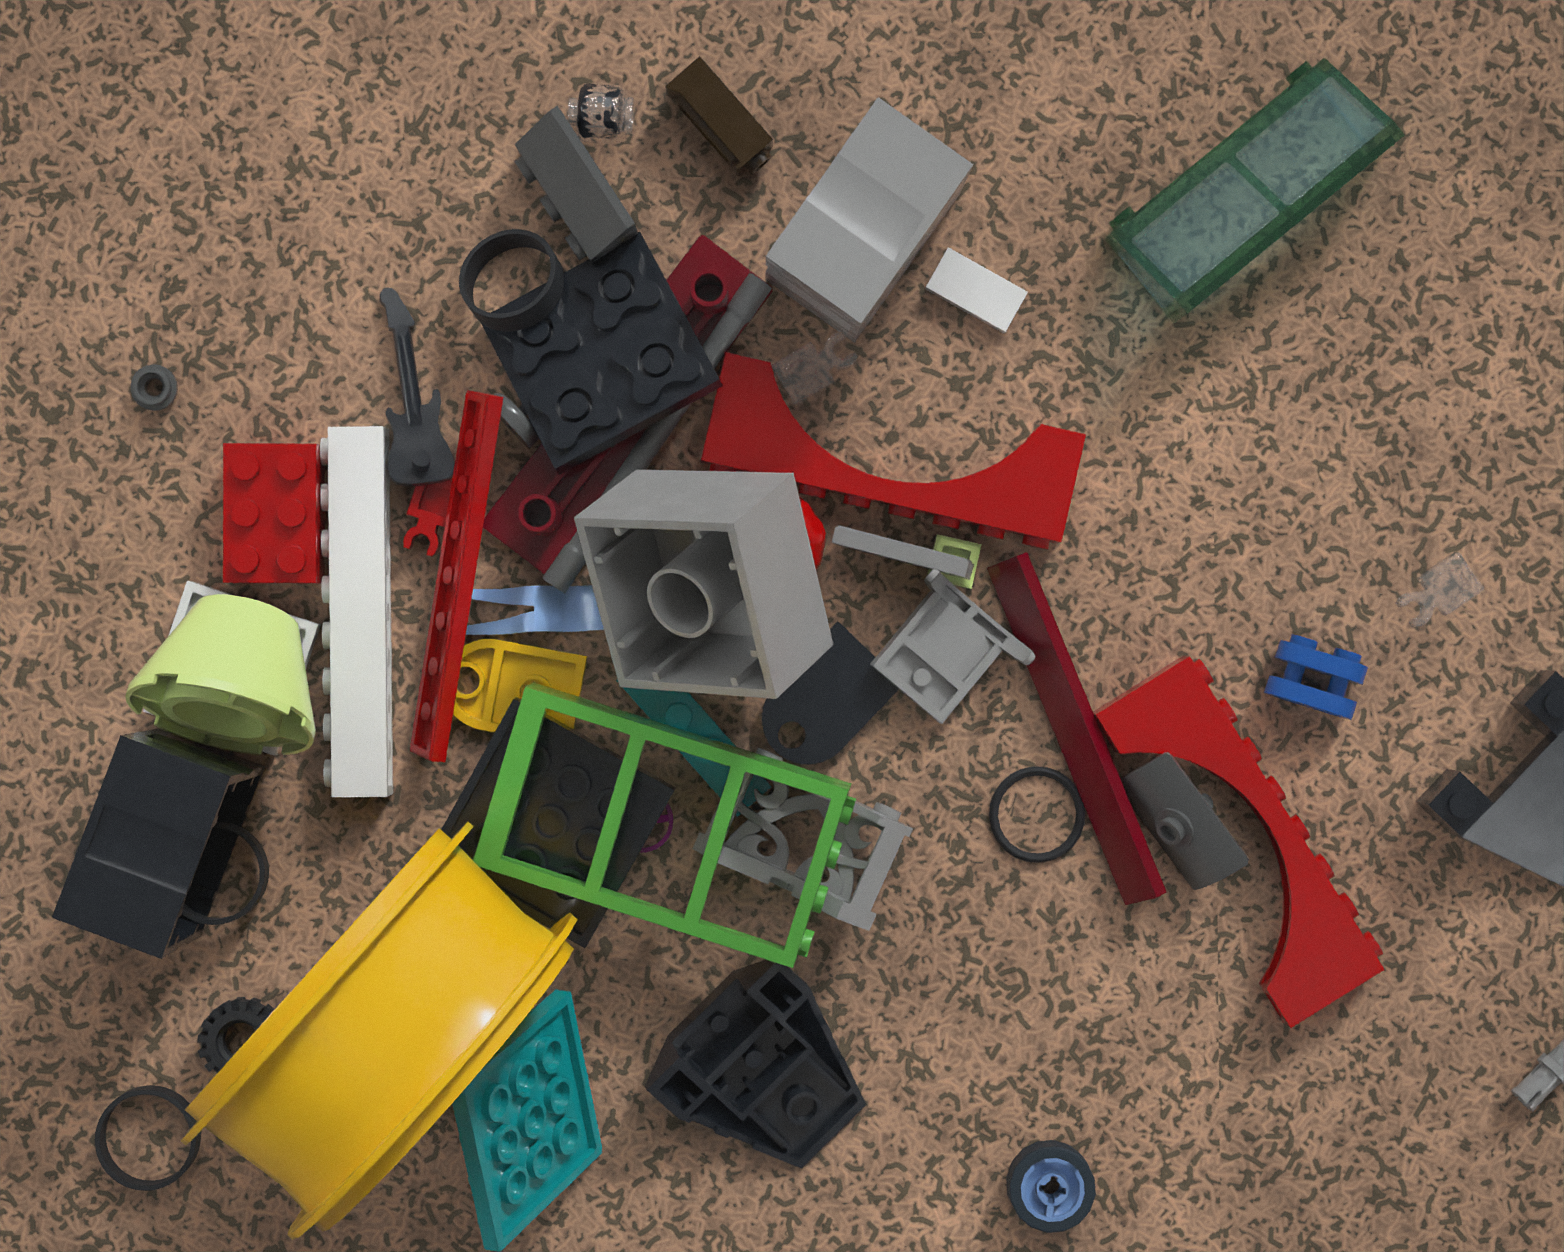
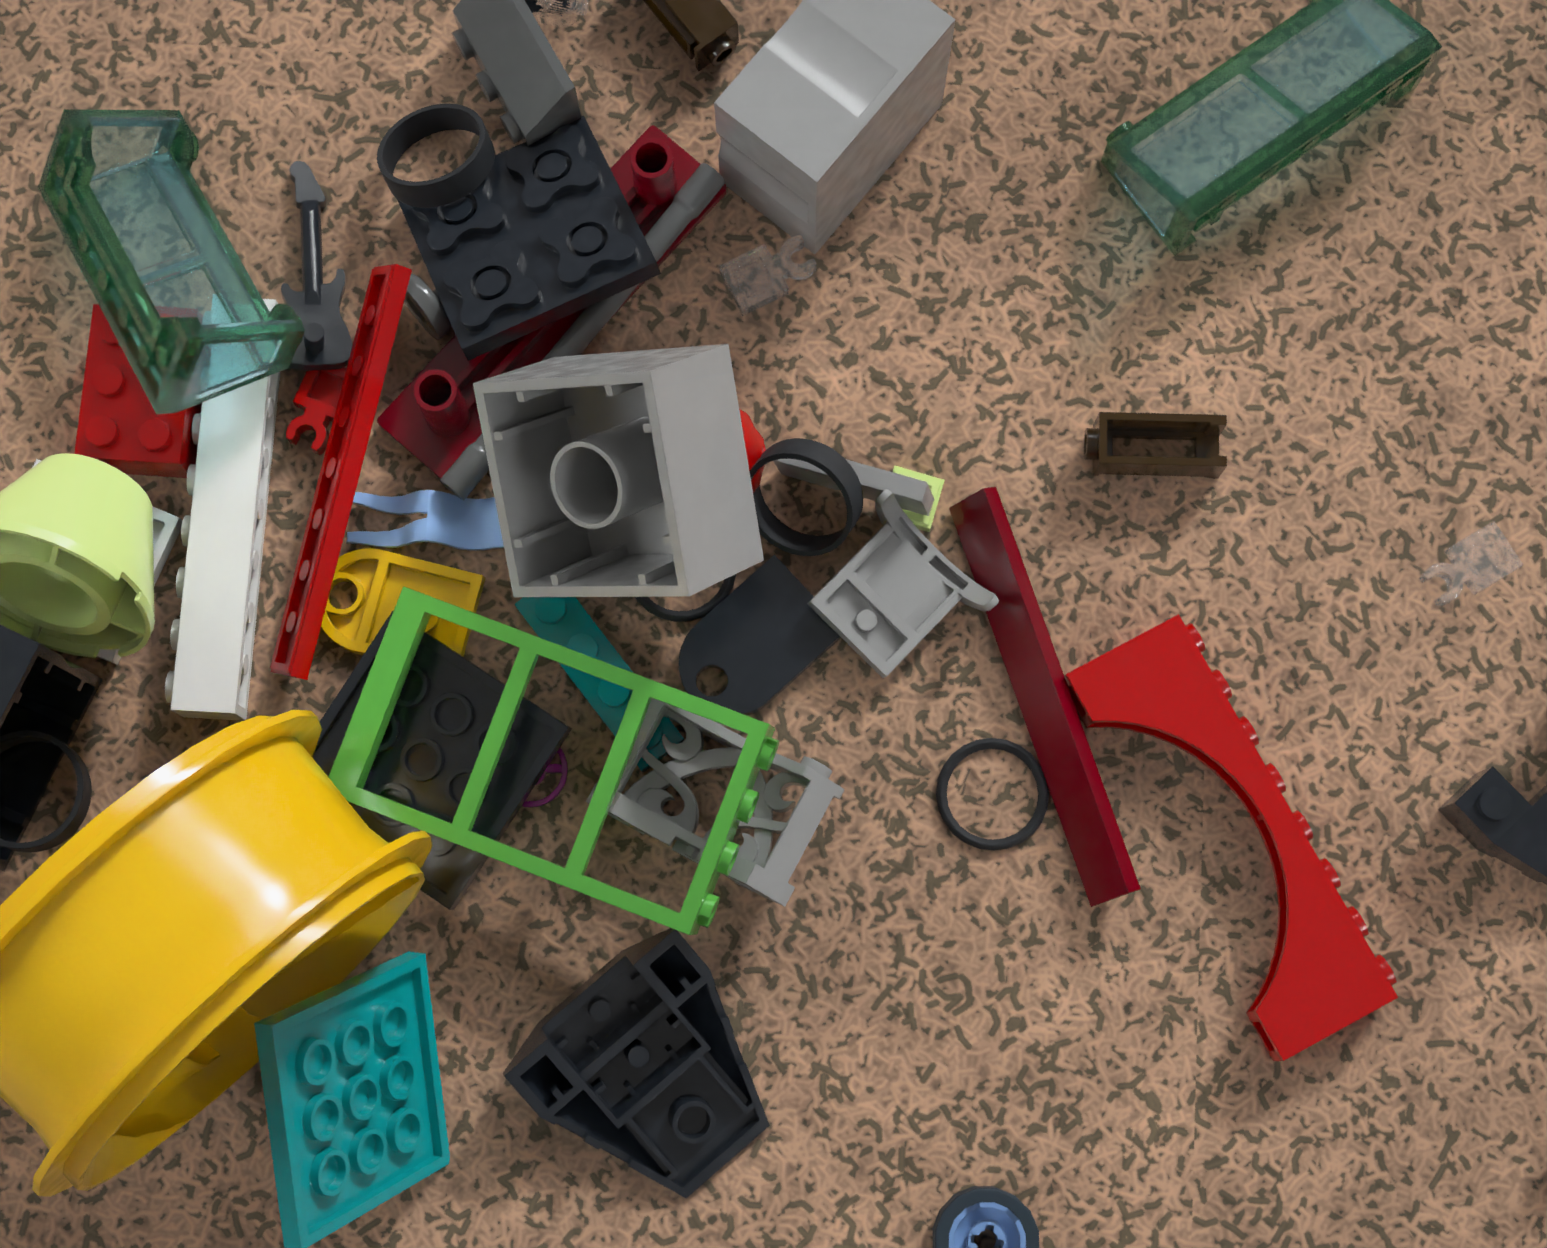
camera: 10 degrees right, 10 degrees down
(140, 383) = (18, 240): dark grey plate -> none
(280, 400) = (161, 257): none -> windscreen
(877, 547) = (837, 469): none -> black tyre
(976, 290) = (954, 204): white tile -> none
(1018, 495) = (982, 427): red arch -> none
(1115, 507) = (1198, 427): none -> dark brown window
(1183, 822) = (1163, 807): dark grey shield -> none
(1302, 654) = (1352, 642): blue brick -> none

